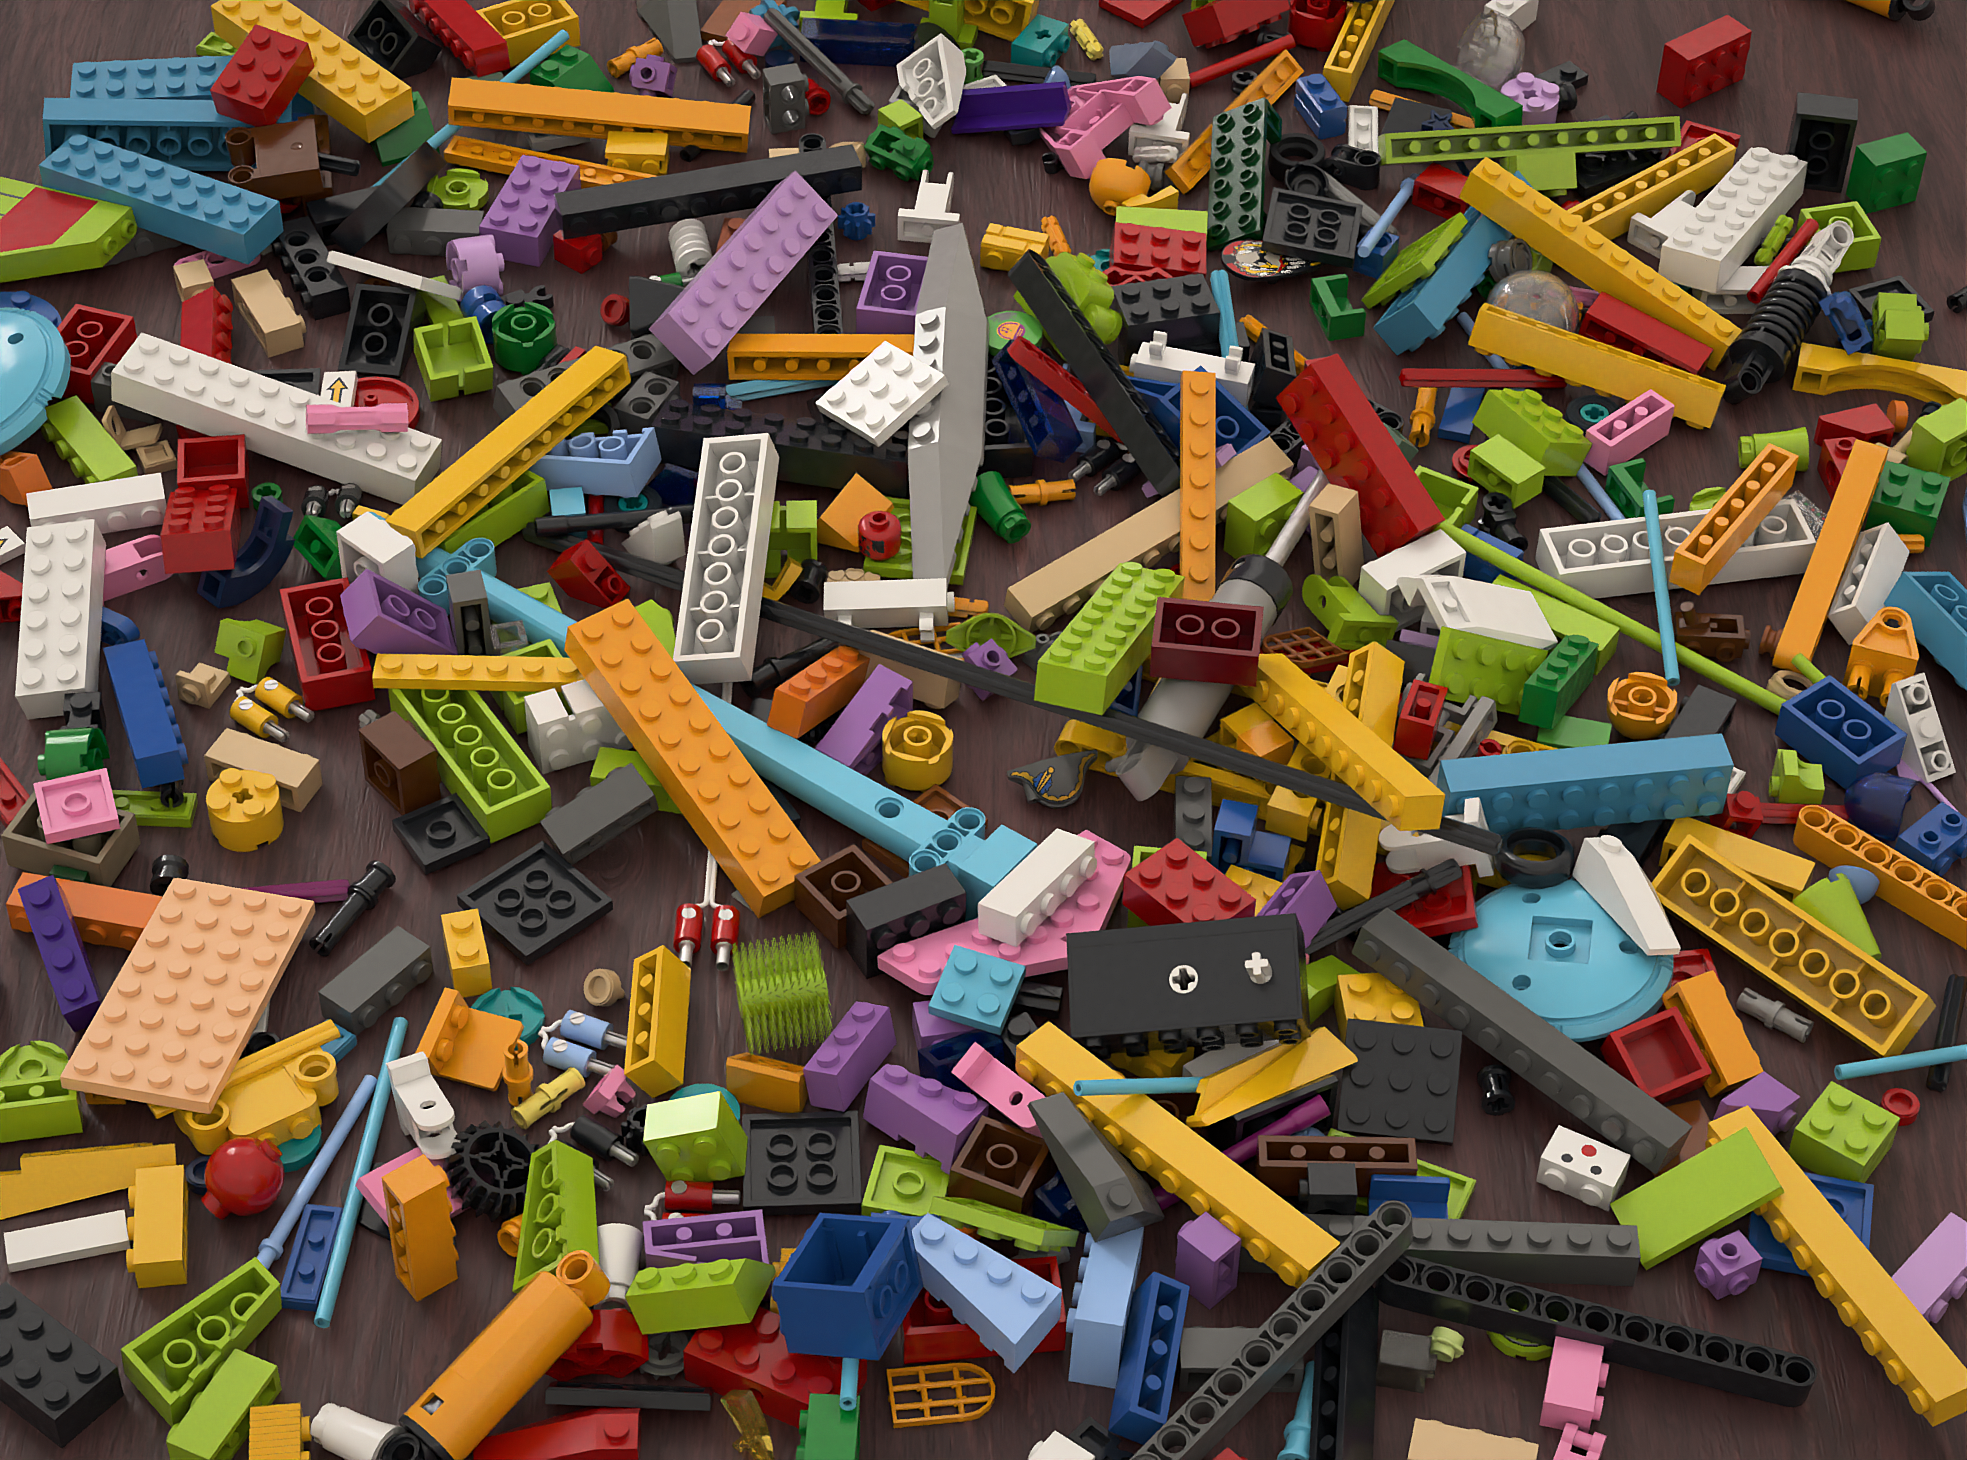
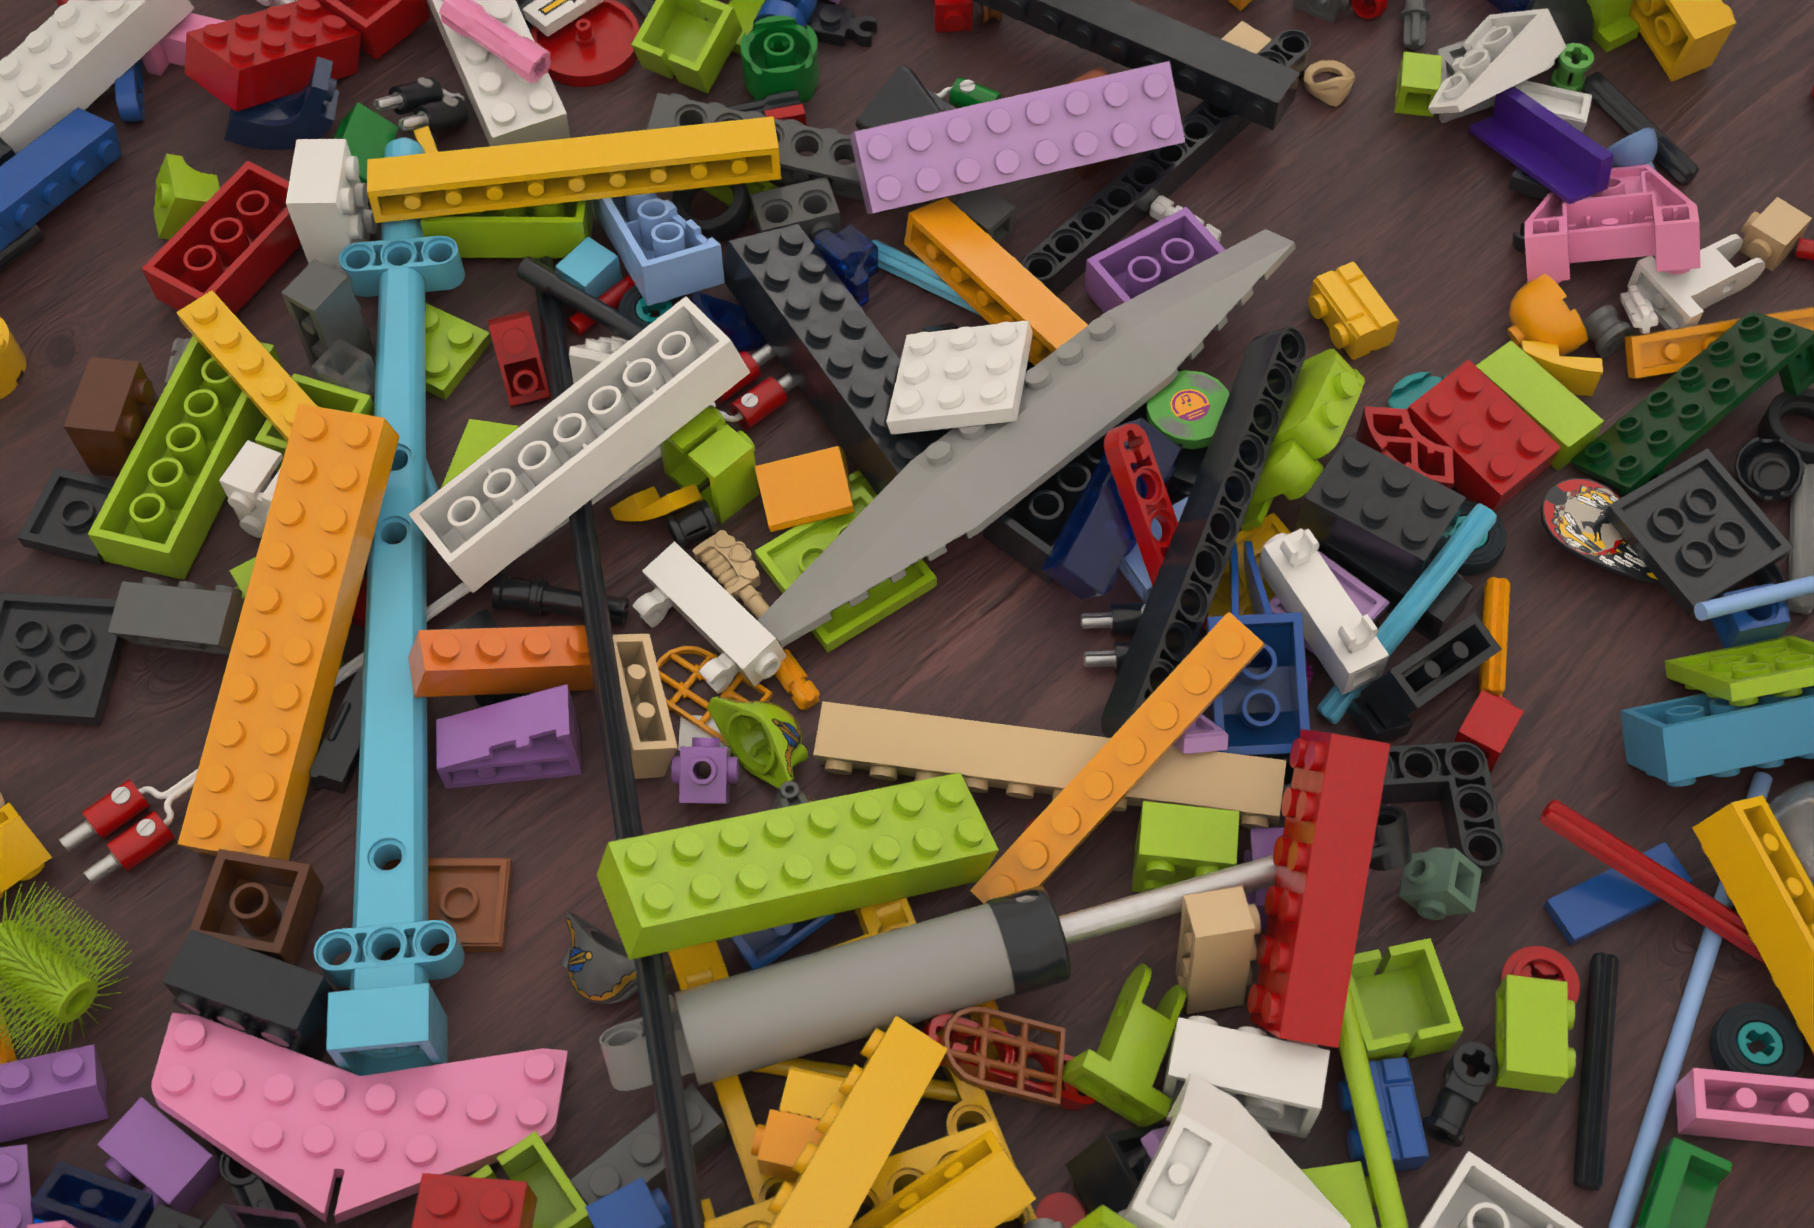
camera: 50 degrees right, 15 degrees up
(202, 685) = (120, 205): tan bracket -> none
(265, 489) = (390, 58): green bush -> none
(276, 697) = (112, 269): yellow piece -> none
(295, 773) = (45, 328): tan brick -> none
(393, 619) = (258, 262): medium lavender brick -> none
(689, 246) = (1048, 67): white piece -> none
(856, 221) = (1239, 160): blue gear -> none
(879, 535) = (785, 533): red head -> none
(908, 155) = (1371, 110): green brick -> none
(917, 751) = (524, 808): yellow brick -> none
(930, 211) = (1328, 202): white piece -> none
(977, 990) = (172, 1153): medium azure plate -> none
(999, 507) = (958, 595): green plant -> none
(1036, 887) = (373, 1089): white brick -> none
(1041, 42) = (1679, 92): teal brick -> none
(1043, 492) = (1028, 612): light orange pin -> none
(1057, 238) = (1419, 328): light orange axle -> none
(1086, 39) = (1744, 120): light yellow axle -> none
(1140, 59) = (1748, 188): sand blue slope -> none
(1206, 641) = (826, 975): dark red brick -> none
(1333, 308) = (1619, 649): green panel -> none
(1423, 417) = (1547, 869): light orange pin -> none
(1533, 429) = (1634, 1008): lime brick -> none

